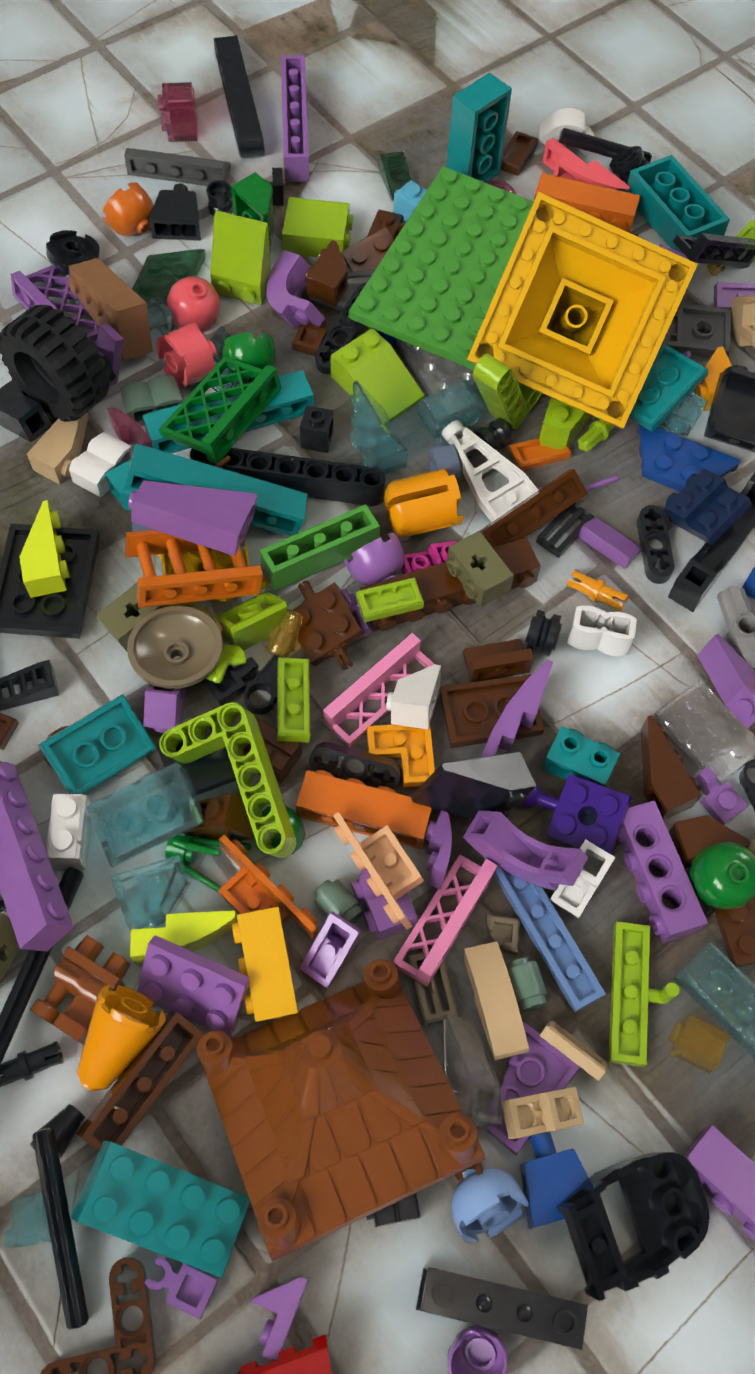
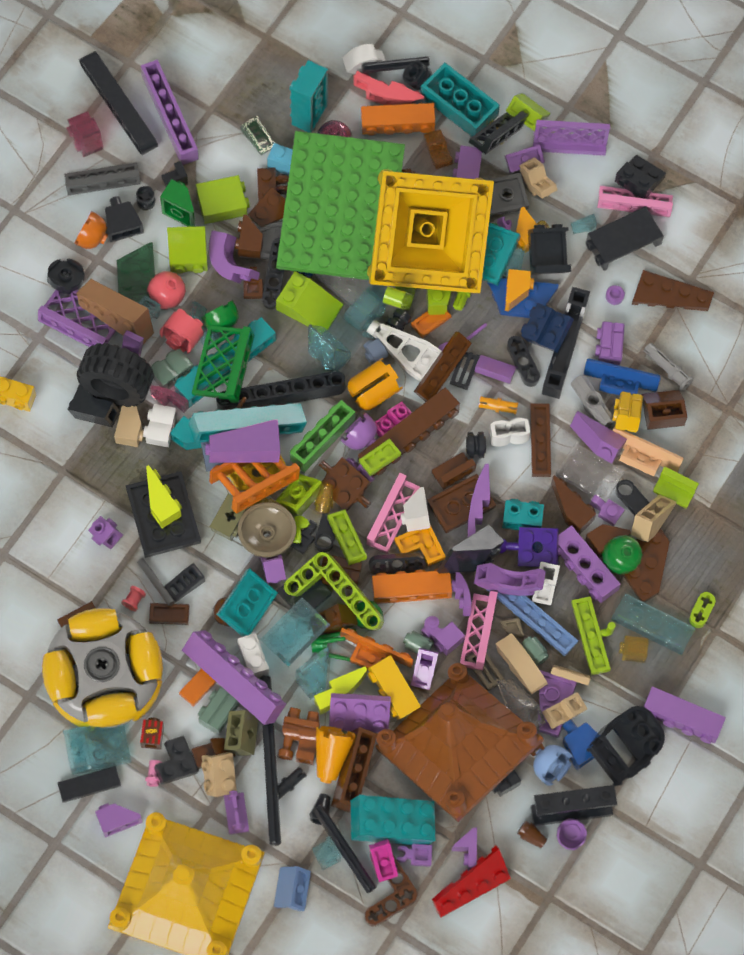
camera: 20 degrees left, 5 degrees up
(113, 1280) = (383, 860): none -> dark pink slope
(317, 429) = (286, 354): black brick -> none
(387, 863) = (438, 612): light nougat bracket -> none
(404, 1329) = (531, 834): none -> reddish brown cone
(479, 569) = (429, 429): olive brick -> none
(518, 152) = (335, 84): reddish brown tile -> none
(645, 660) = (540, 440): none -> reddish brown plate
(680, 441) = (518, 287): none -> light orange slope

